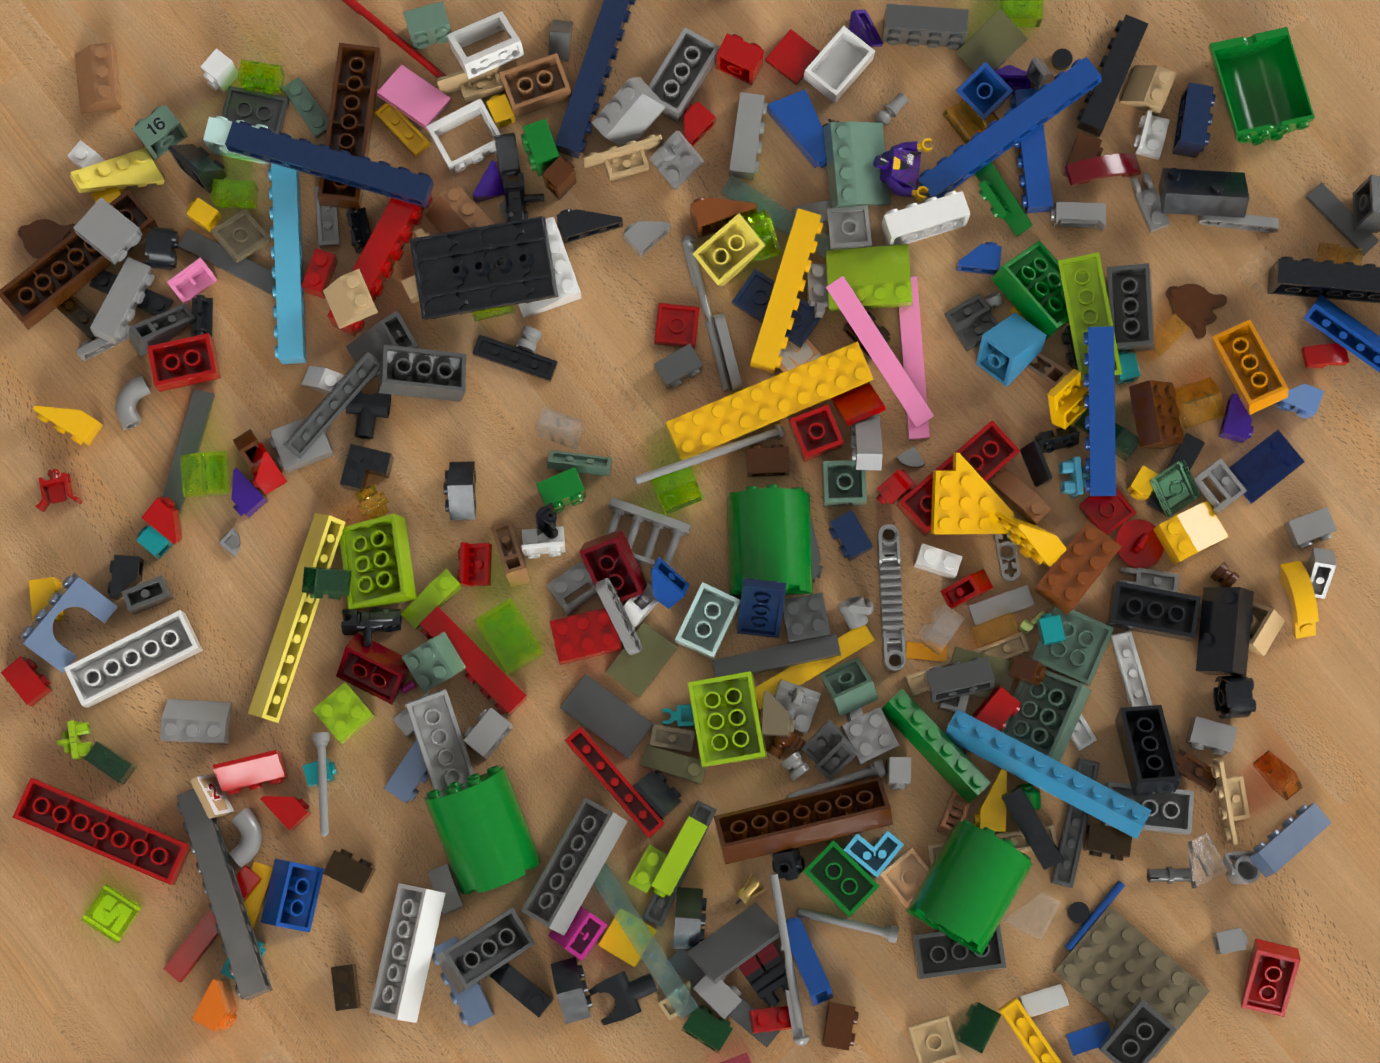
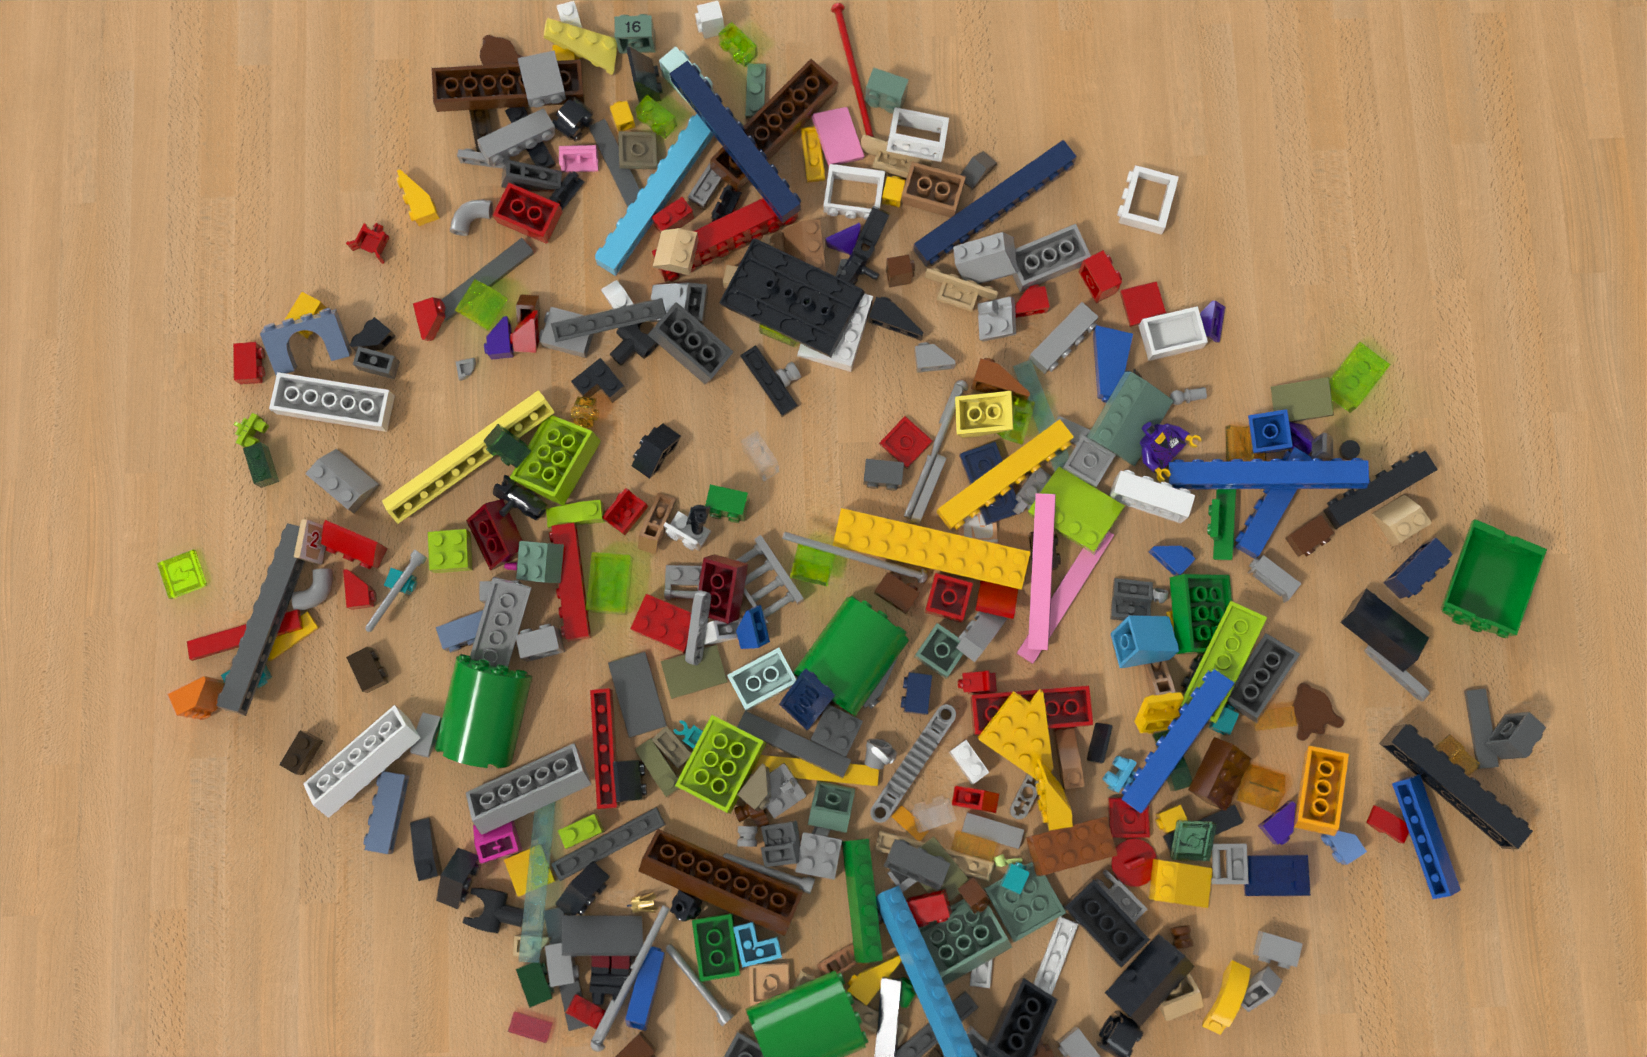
camera: 40 degrees right, 0 degrees up
(102, 831) = (217, 510): red brick -> none
(154, 541) = (409, 328): teal brick -> none
(256, 108) = (717, 66): dark grey tile -> none
(292, 895) = (314, 657): blue slope -> none
(485, 950) = (416, 802): dark grey brick -> none
(540, 145) = (902, 236): green brick -> none
(582, 462) = (757, 492): sand green plate -> none
(679, 857) = (609, 839): lime slope -> none
(898, 772) = (818, 899): light grey brick -> none
(911, 458) = (1007, 669): light grey tile -> none
(925, 26) = (1260, 350): dark grey brick -> none
(1065, 439) = (1121, 734): black hinge -> none
(1102, 167) = (1319, 554): dark red slope -> none
(1149, 204) = (1336, 608): light grey hinge -> none
(1152, 136) = (1377, 557): white bracket -> none

